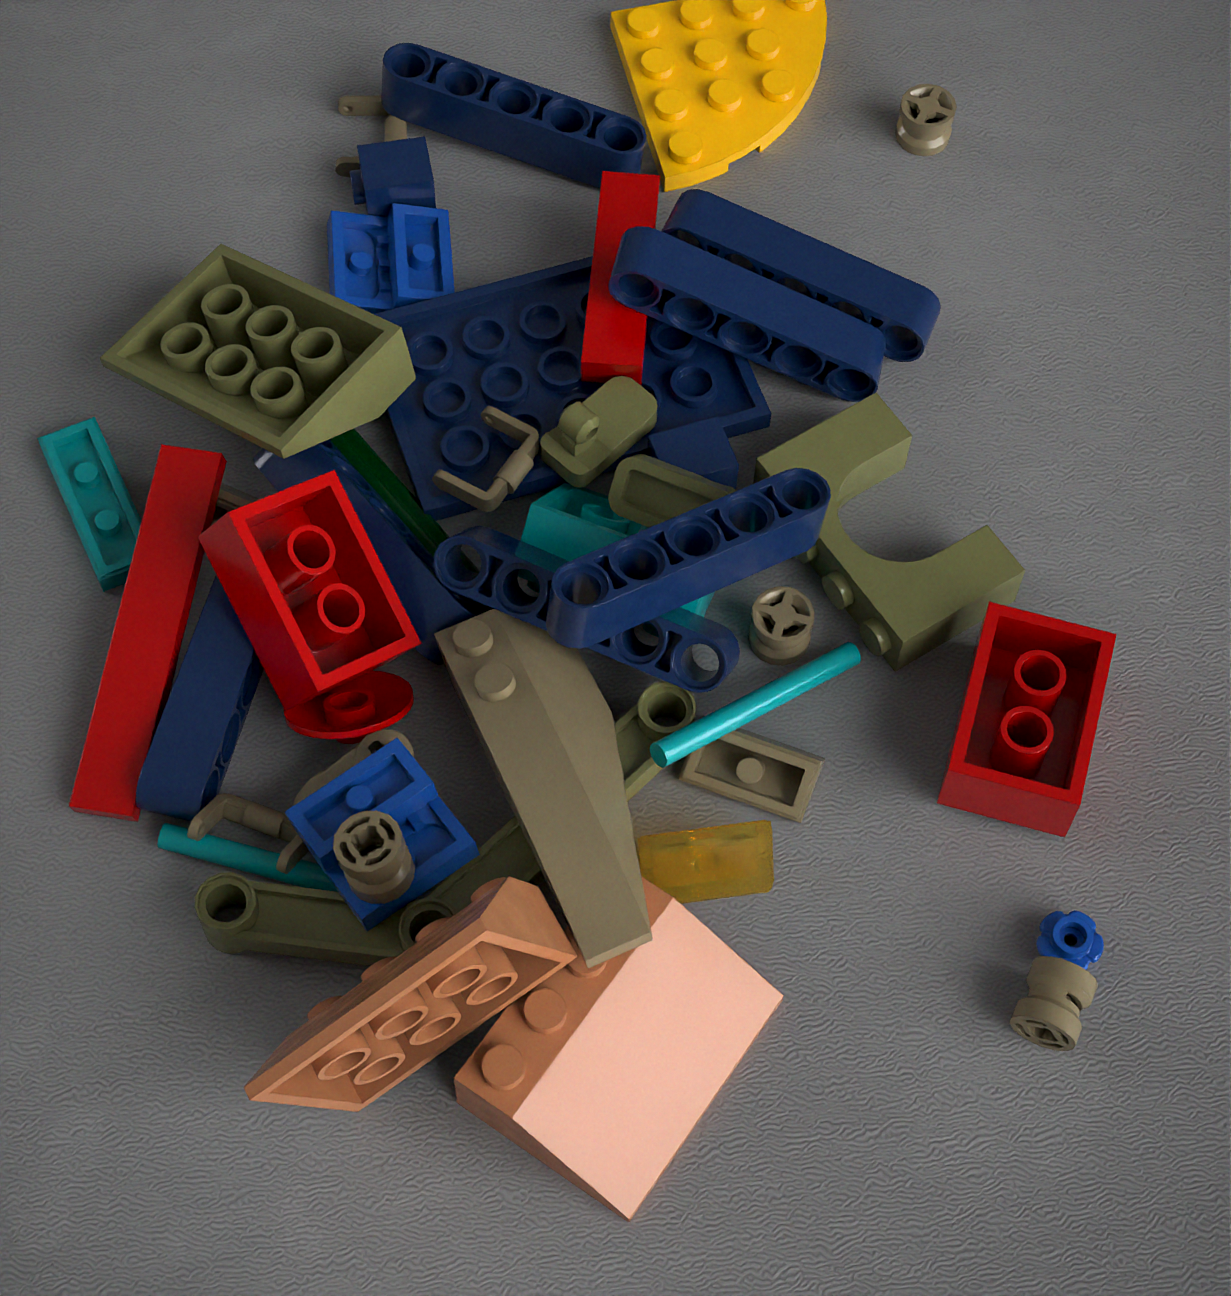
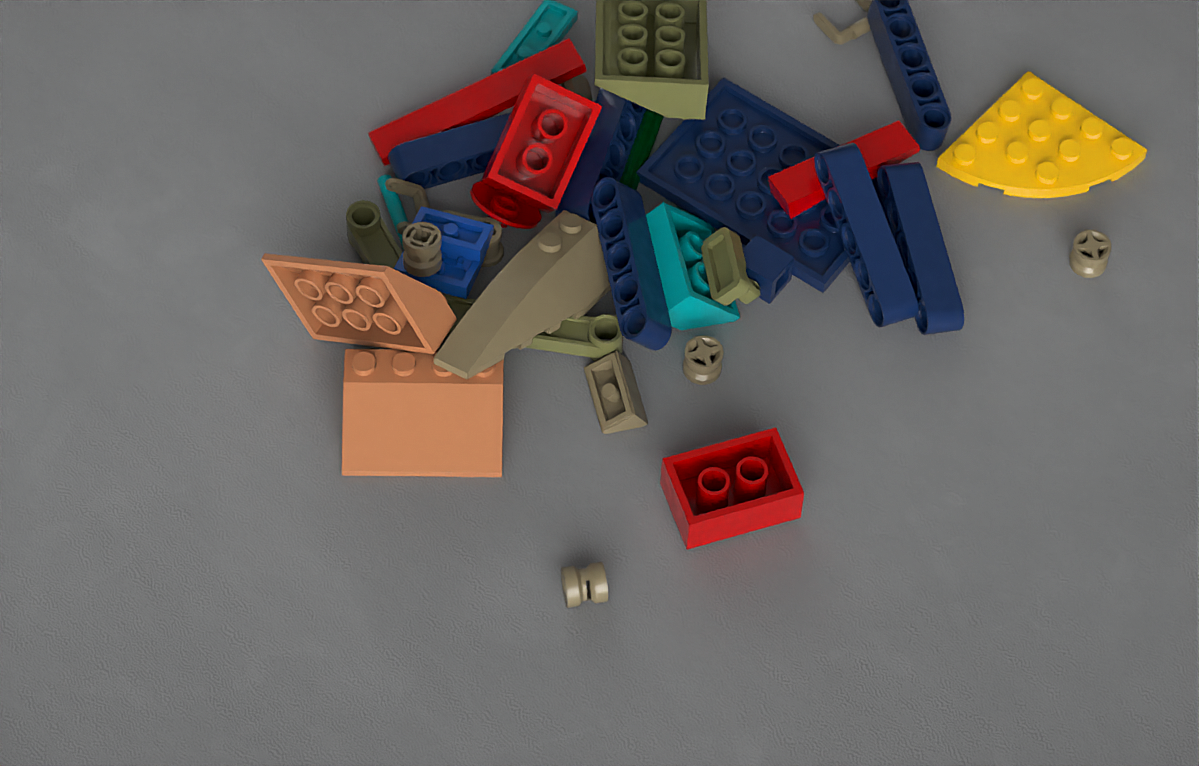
camera: 55 degrees right, 5 degrees down
(391, 258) = (777, 71): blue slope -> none
(393, 174) = (824, 43): dark blue brick -> none
(508, 476) = (687, 192): dark tan piece -> none
(599, 430) = (743, 213): olive piece -> none
(686, 557) = (679, 276): dark blue beam -> none
(709, 861) = (543, 400): clear yellow slope -> none
(754, 704) = (645, 369): teal bar -> none
(897, 605) = (793, 327): olive arch -> none
(1076, 924) = (627, 588): blue plate -> none

